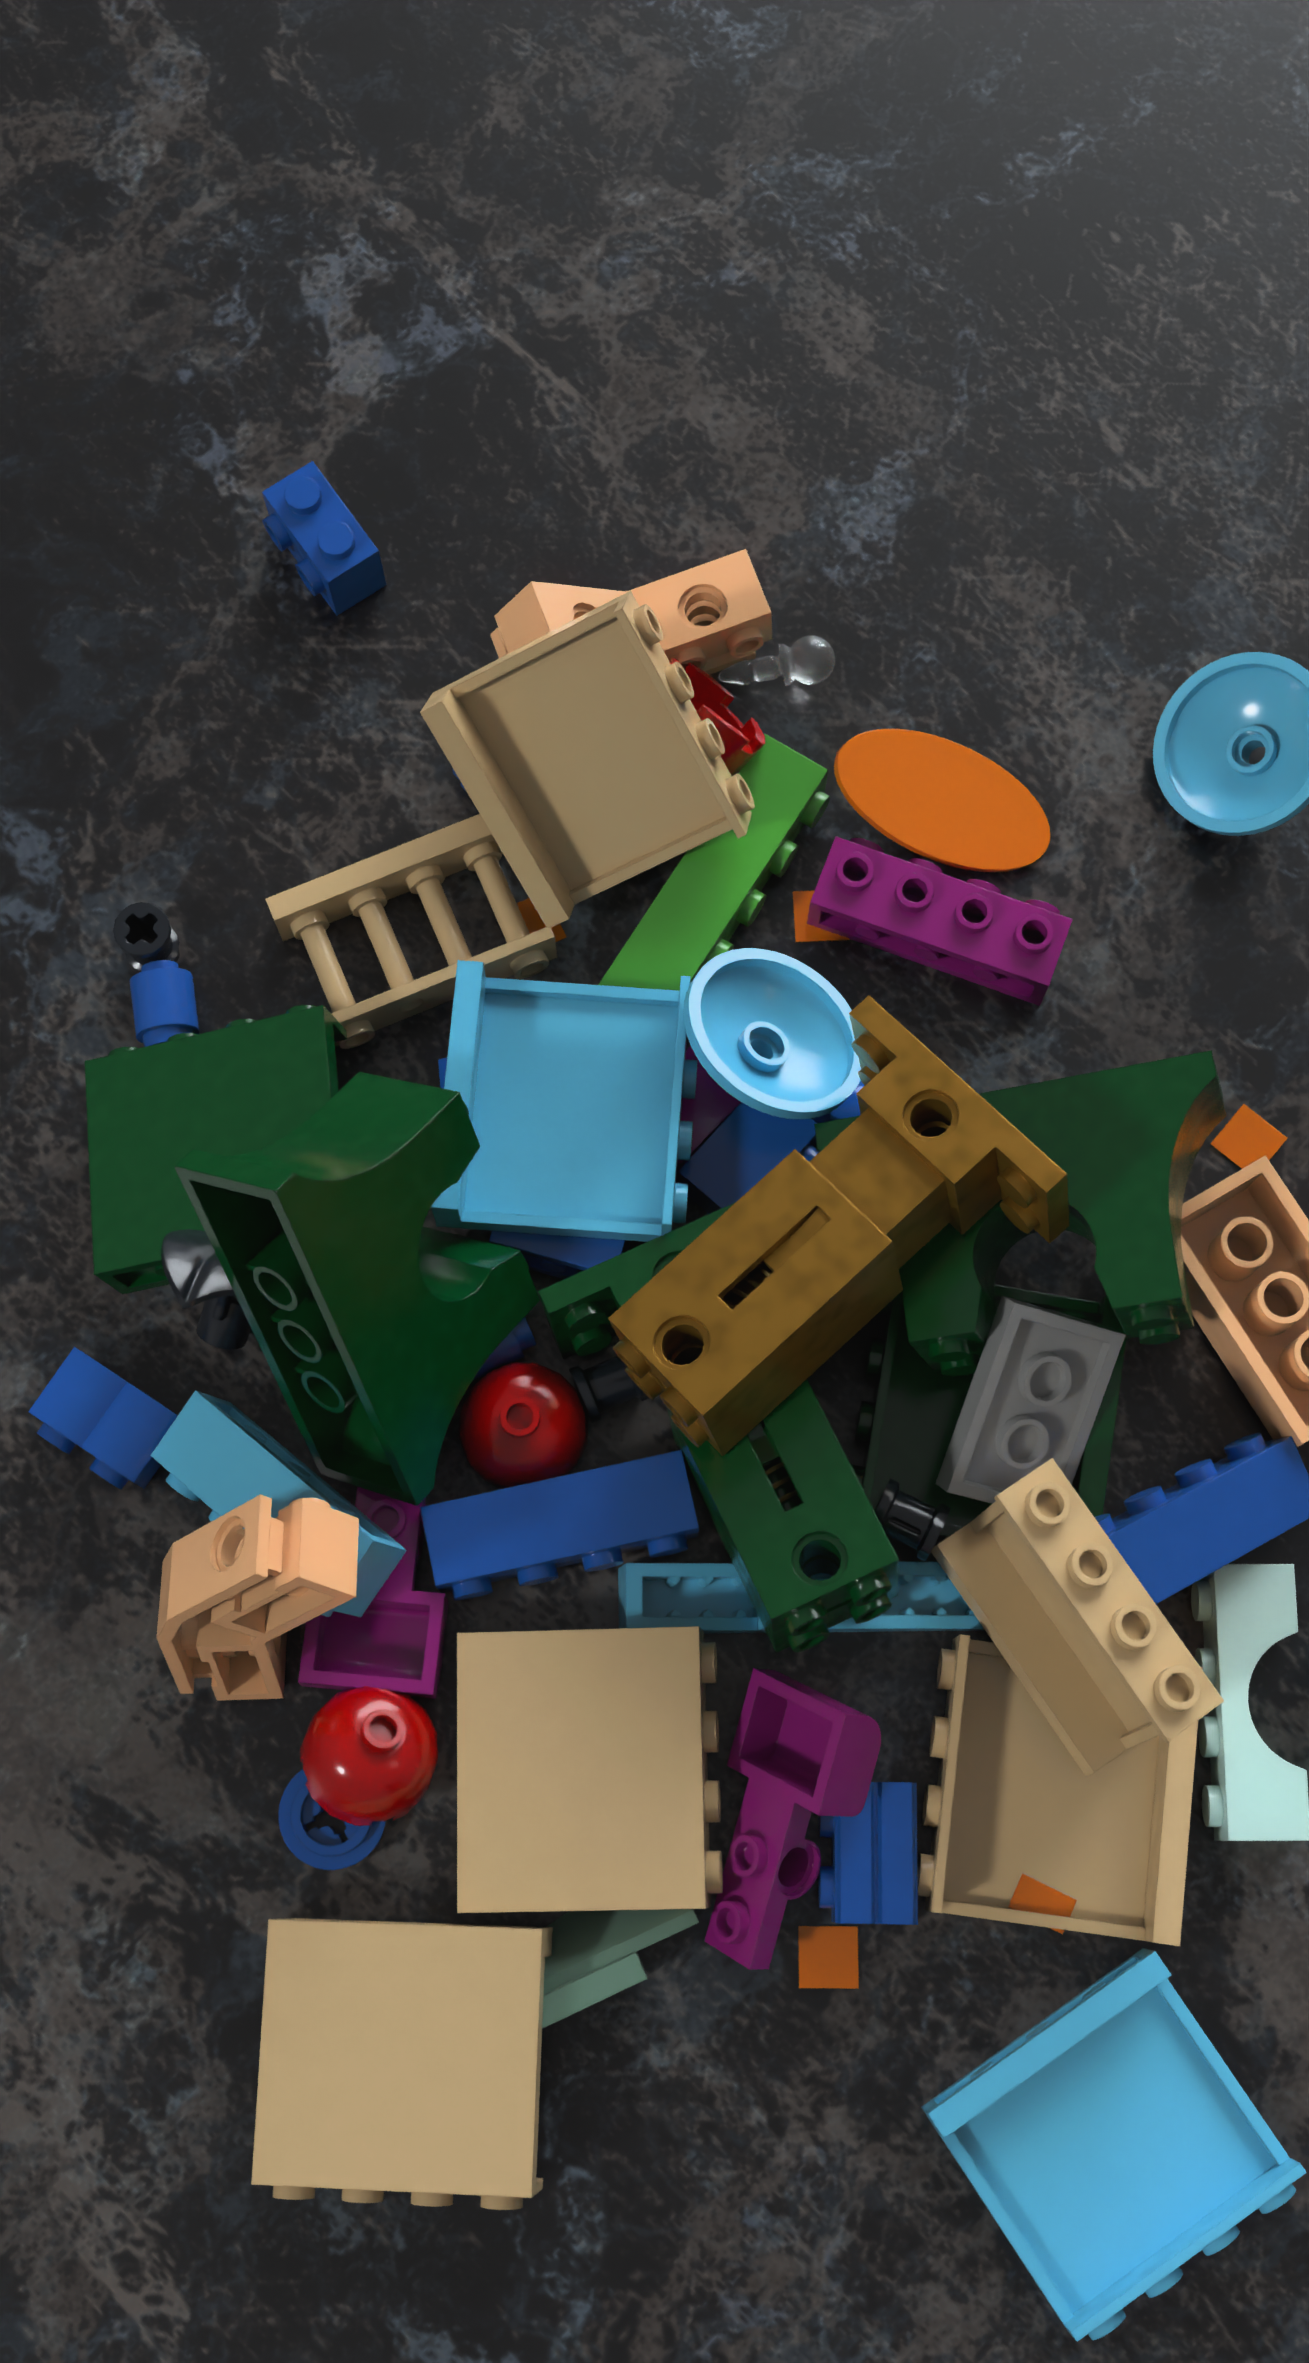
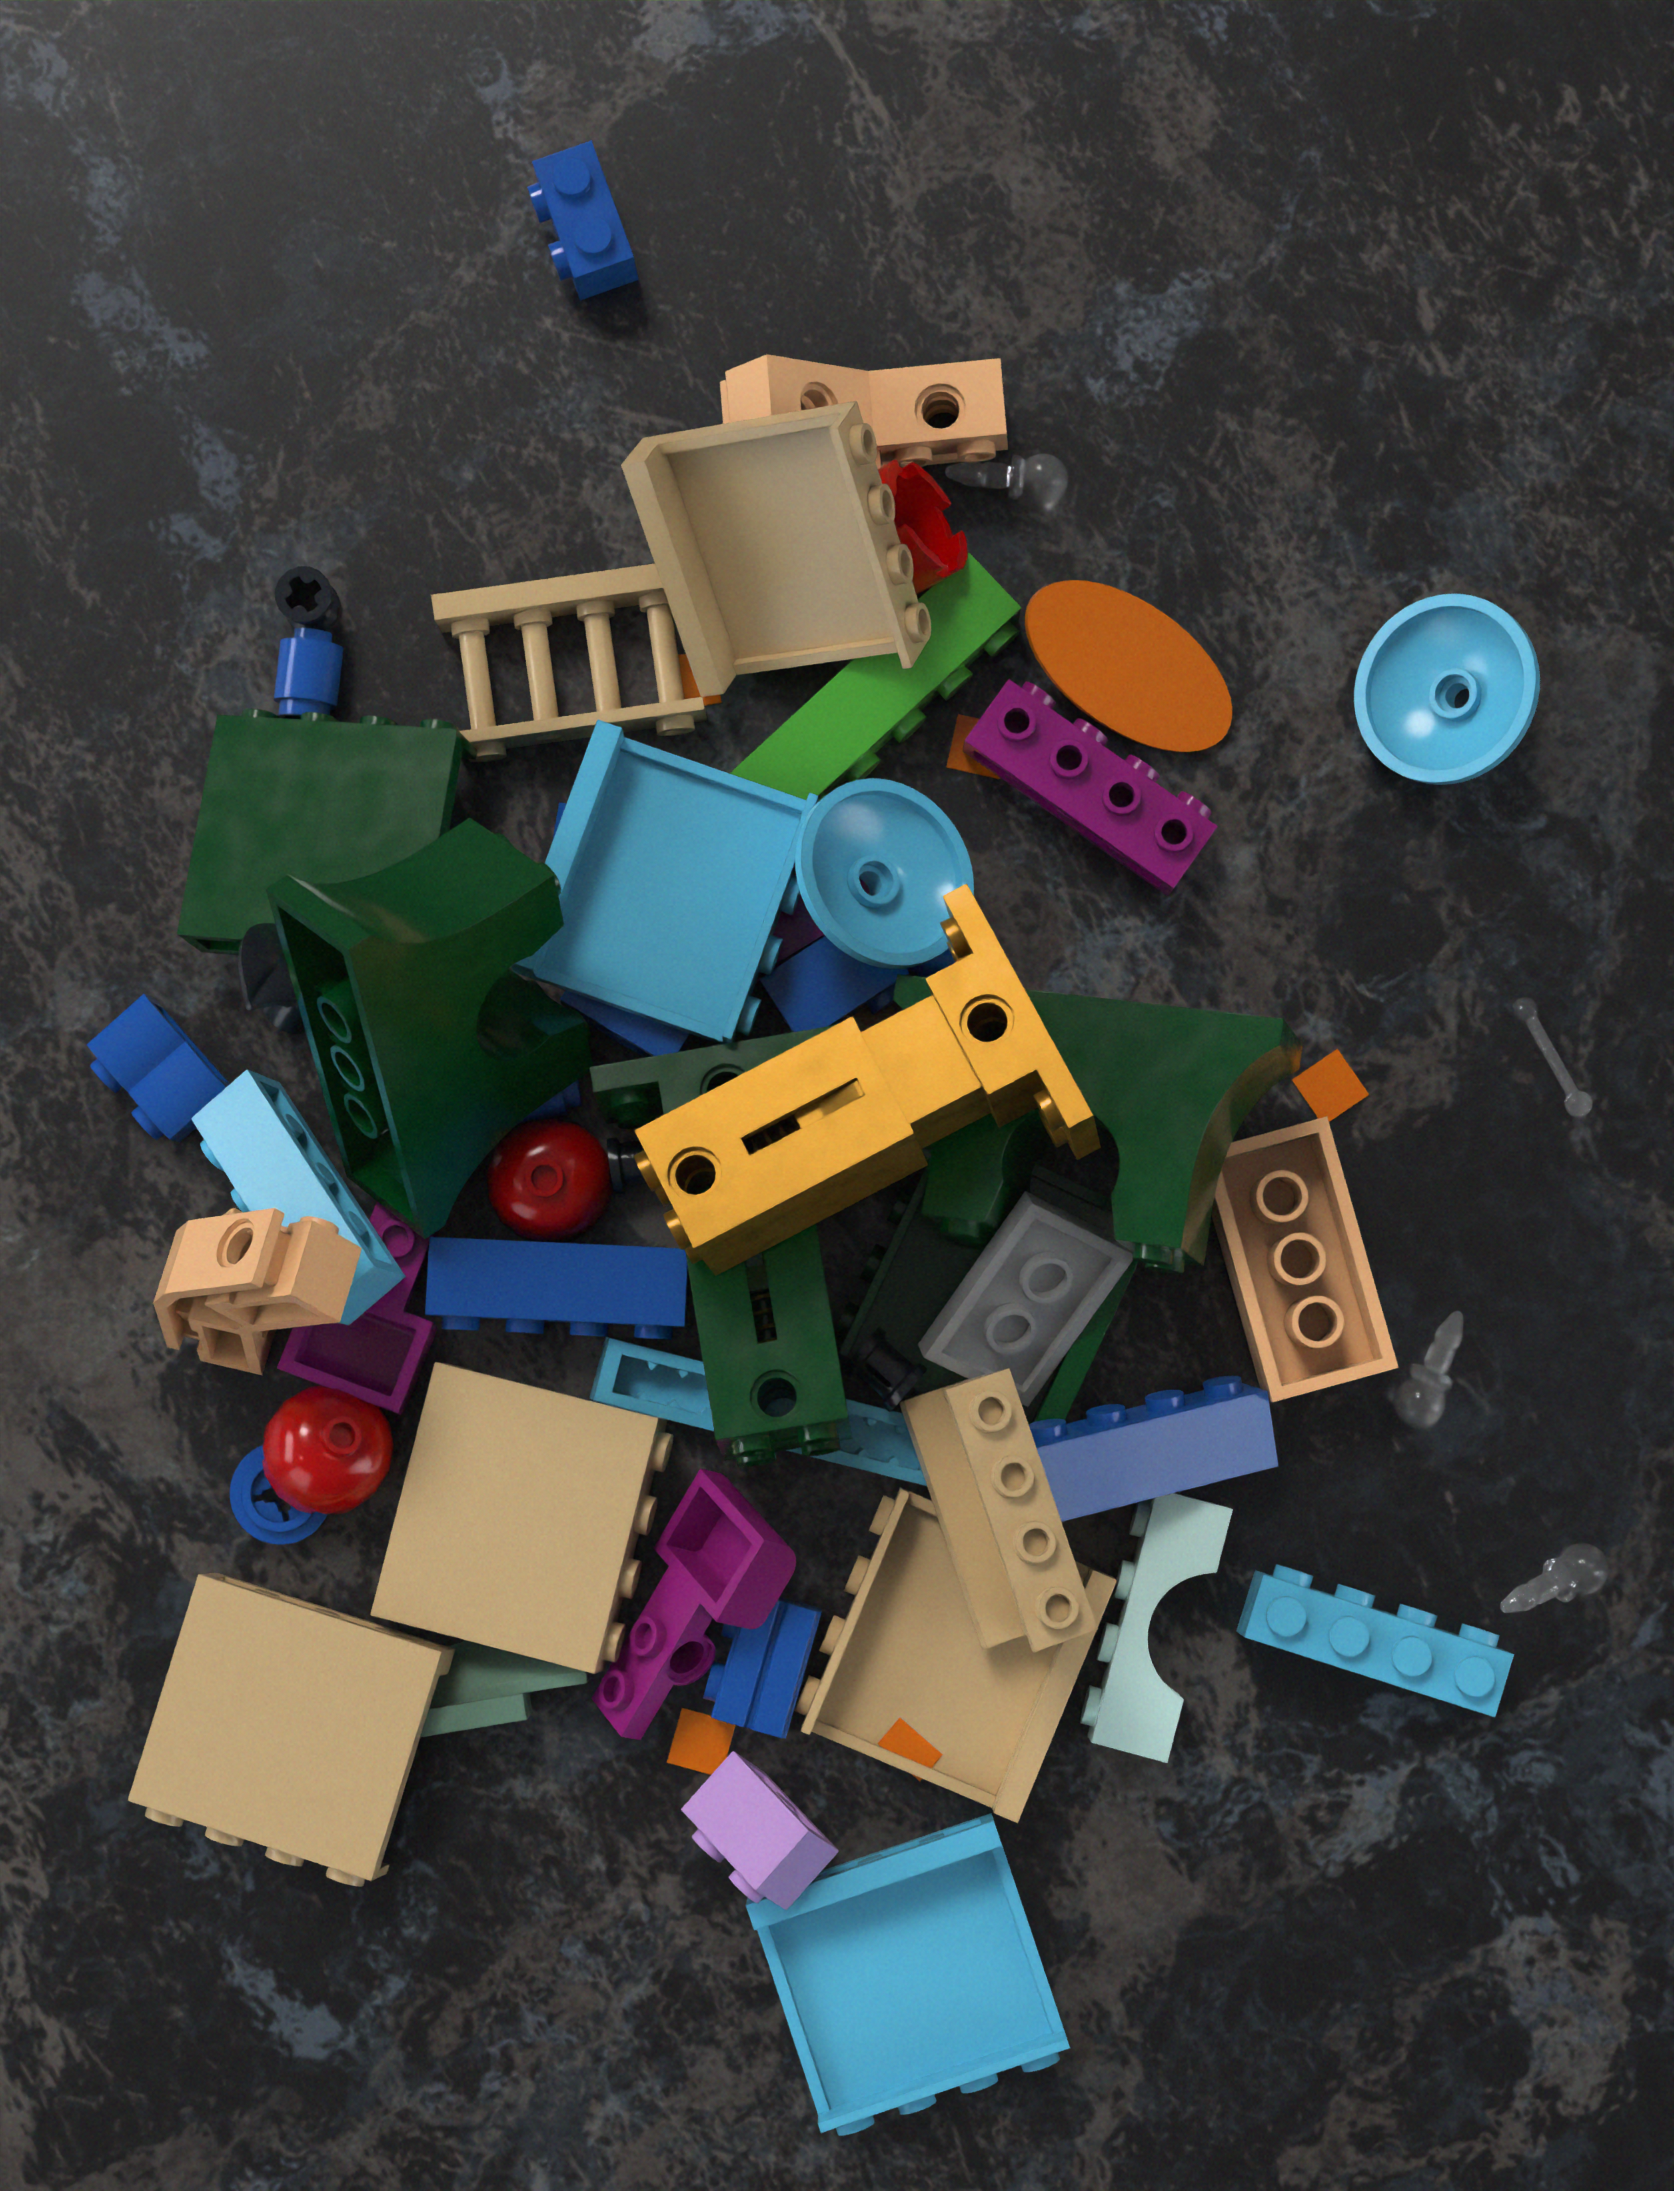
camera: 20 degrees right, 10 degrees up
(920, 2031) = (758, 1832): none -> lavender brick

